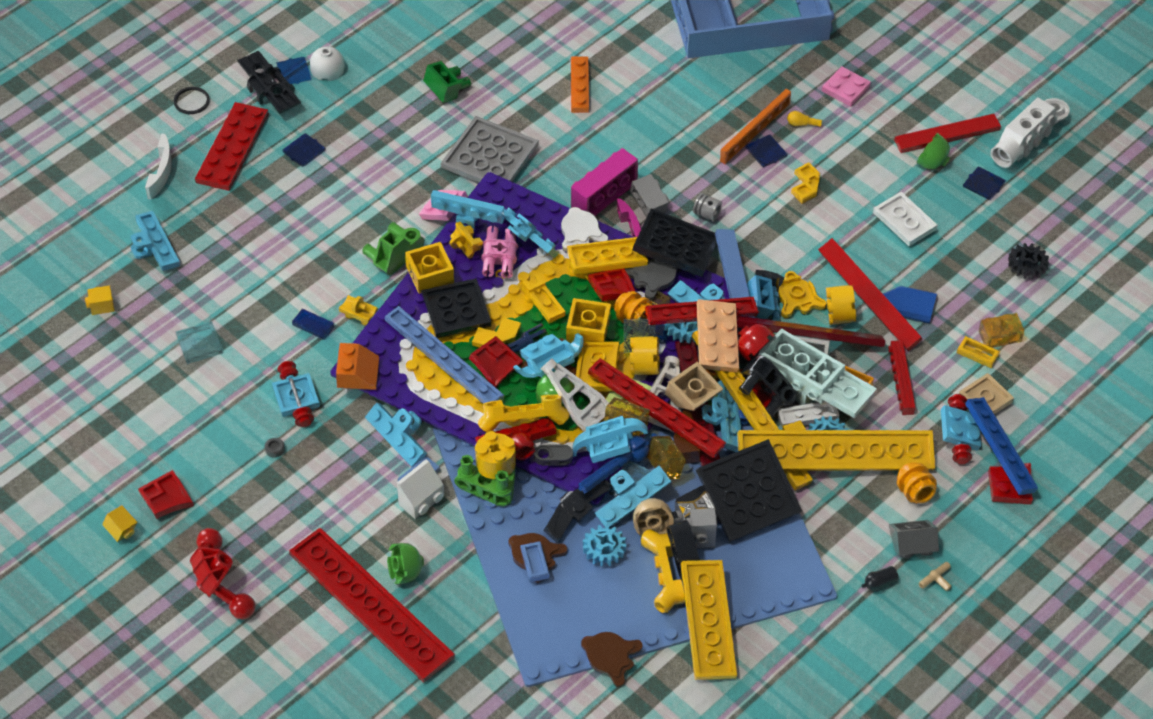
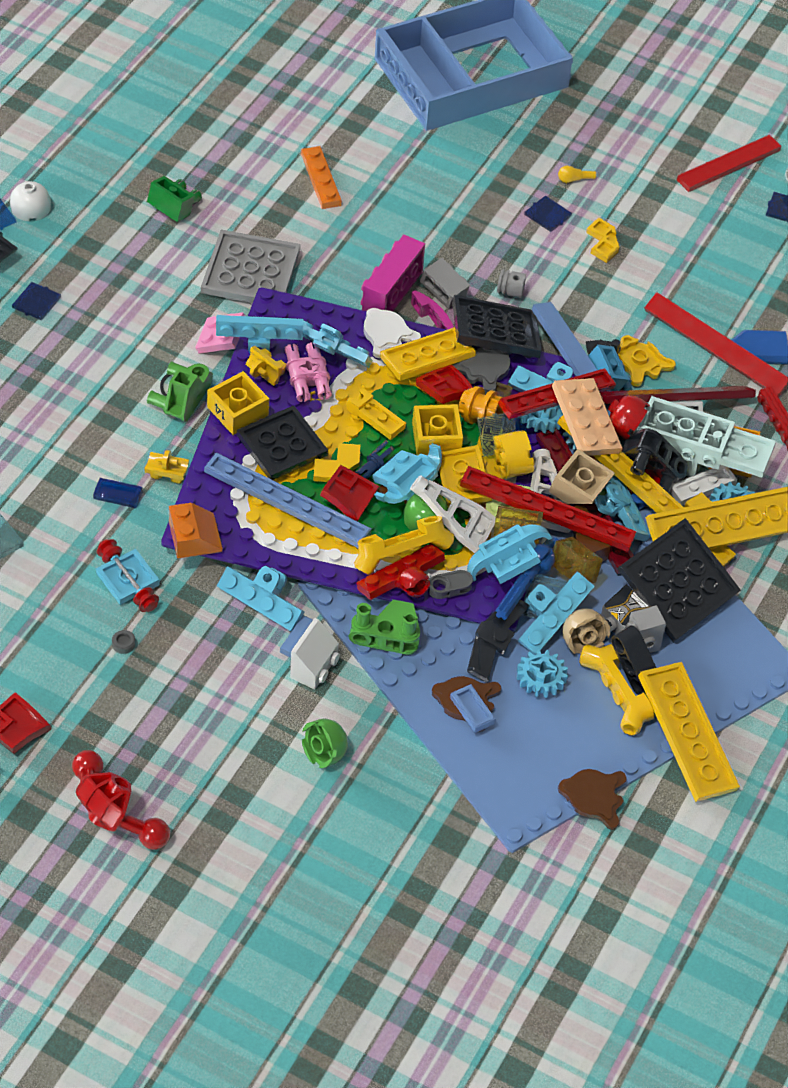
camera: 20 degrees left, 0 degrees up
(372, 604) = (303, 798): red plate -> none
(495, 453) = (391, 596): yellow brick -> none
(755, 126) = (528, 190): orange tile -> none
(841, 304) = (695, 360): yellow brick -> none
(846, 86) = (605, 132): bright pink plate -> none
(905, 218) = (722, 259): white plate -> none
(935, 153) = (727, 185): bright green cylinder -> none

